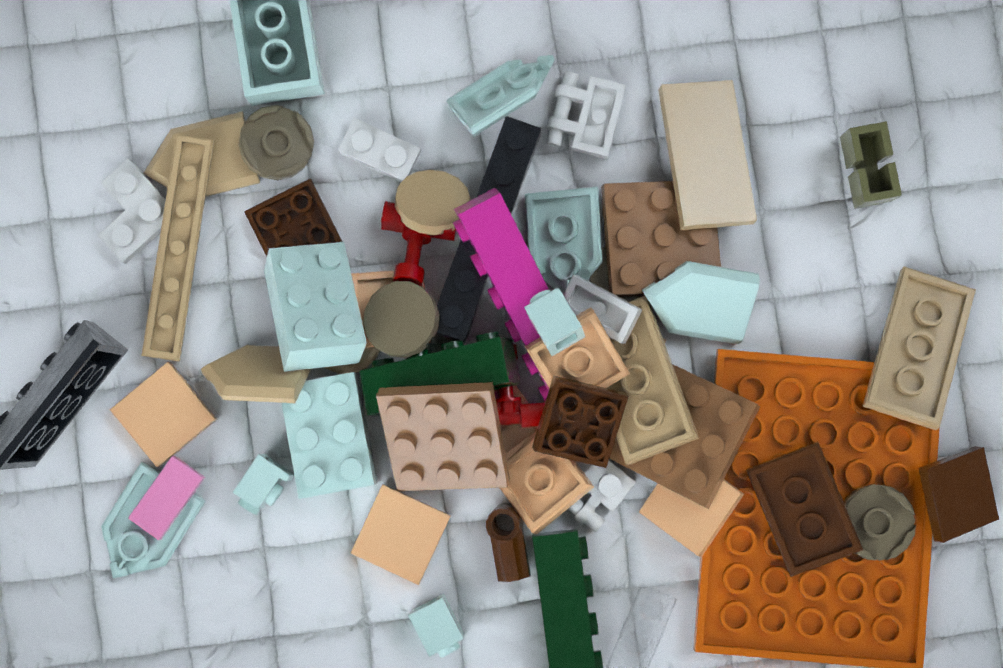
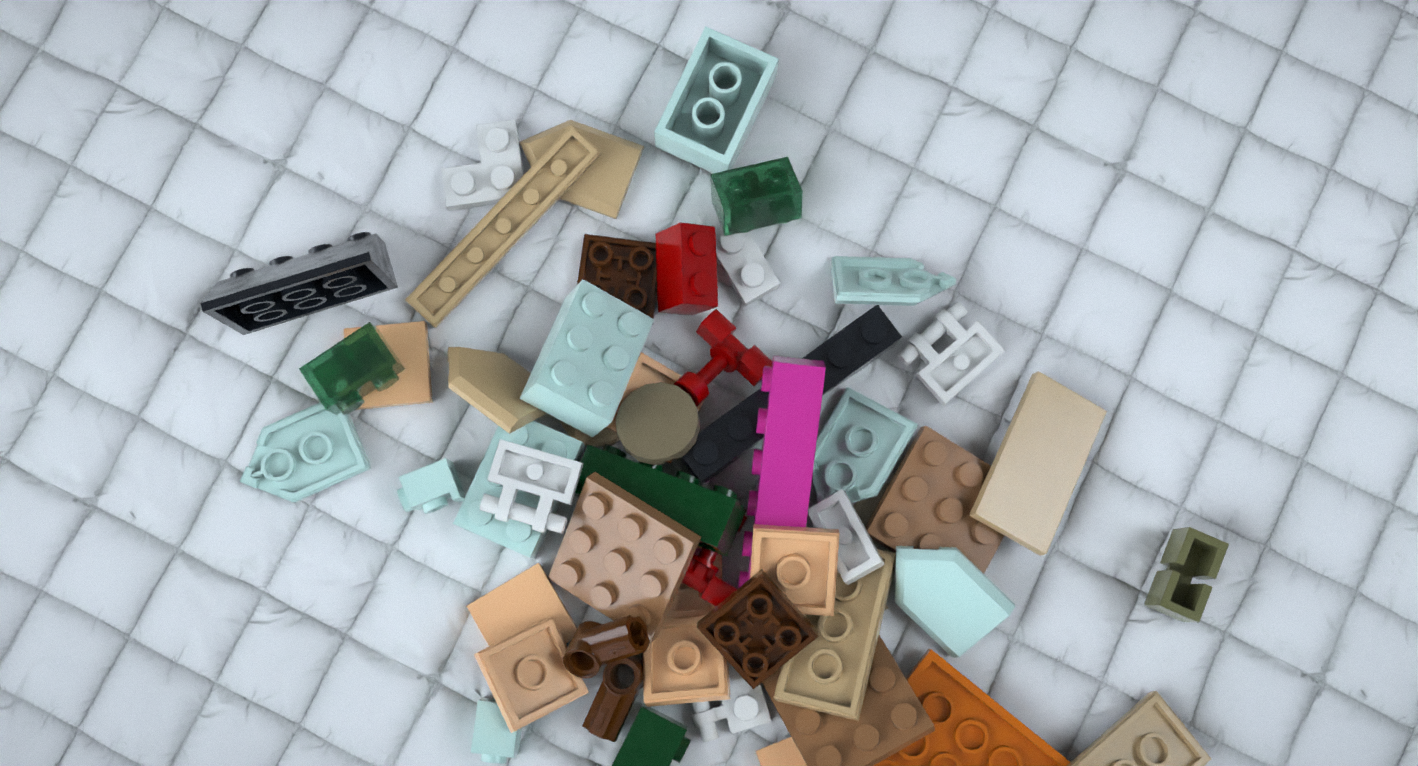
camera: 30 degrees right, 5 degrees down
(141, 436) = (353, 370): none -> clear green brick
(166, 497) = (337, 441): bright pink tile -> none
(276, 142) = (654, 192): dark tan tile -> none
(335, 419) = (535, 473): none -> white plate
(342, 186) = (686, 269): none -> red brick
(357, 93) = (760, 197): none -> clear green brick
(429, 199) = (755, 333): tan tile -> none
(434, 569) = (530, 674): none -> light nougat tile
(469, 513) = (604, 643): none -> reddish brown piece
(554, 320) = (796, 519): light aqua brick -> none

